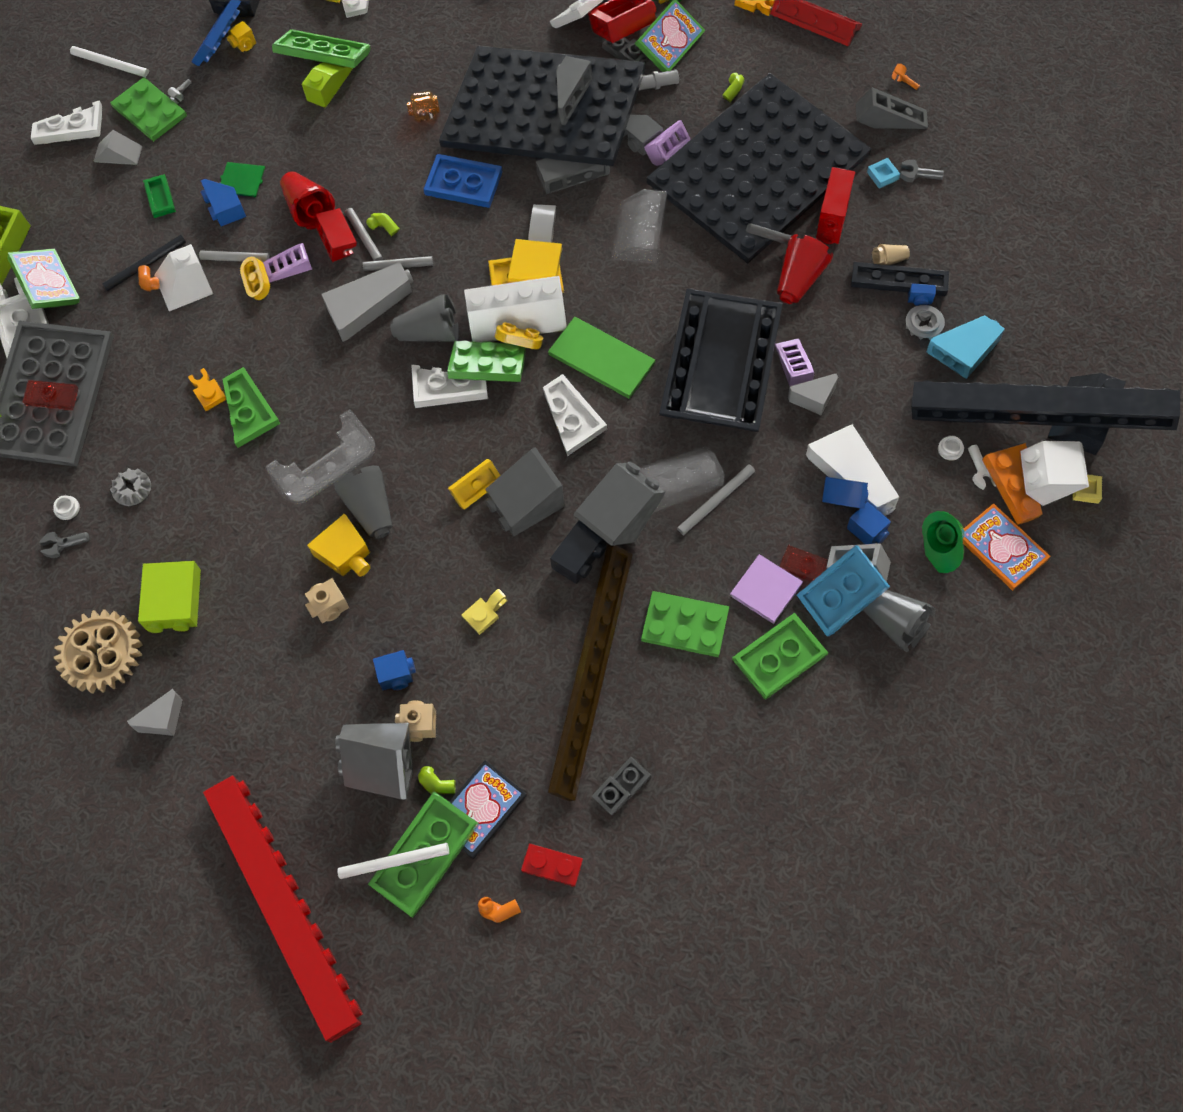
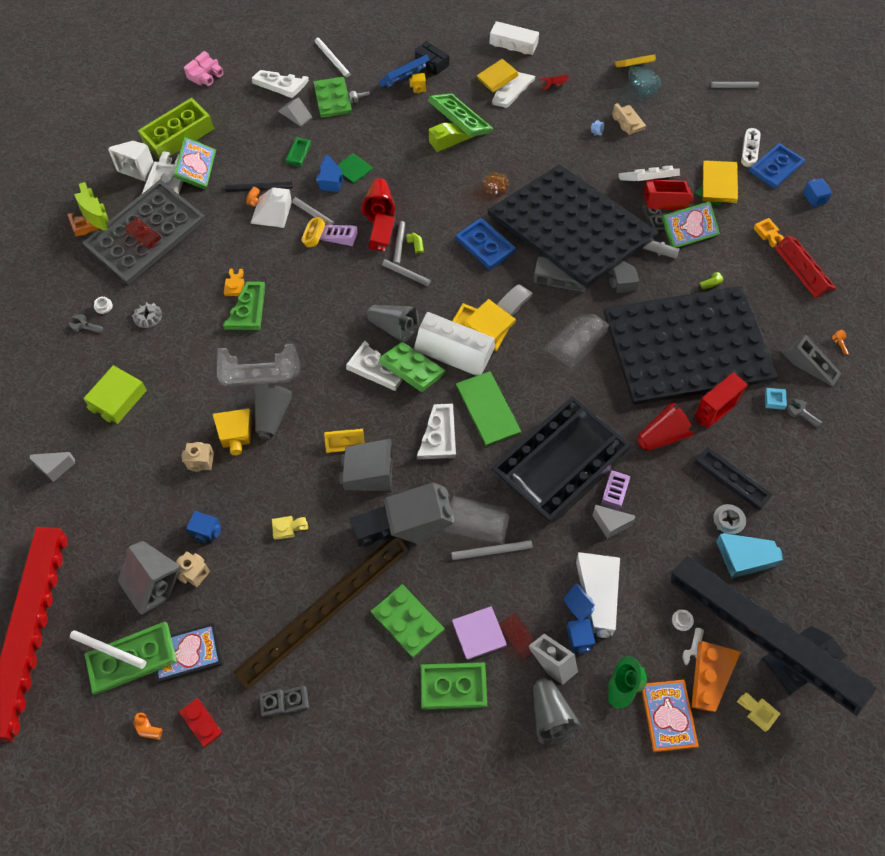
camera: 30 degrees right, 5 degrees down
(75, 656) = (49, 397): tan gear -> none
(366, 298) = (368, 283): light grey slope -> none
(432, 783) = (171, 616): lime arm -> none
(512, 335) = (443, 363): yellow plate -> none
(572, 81) = (596, 218): dark grey slope -> none
(655, 148) = (625, 293): lavender slope -> none
(768, 233) = (660, 394): dark grey bar -> none
(843, 590) = (526, 669): dark azure tile -> none
(890, 254) = (738, 457): tan cone -> none
(921, 294) = (740, 498): blue plate -> none
(1053, 470) = (743, 684): white slope -> none

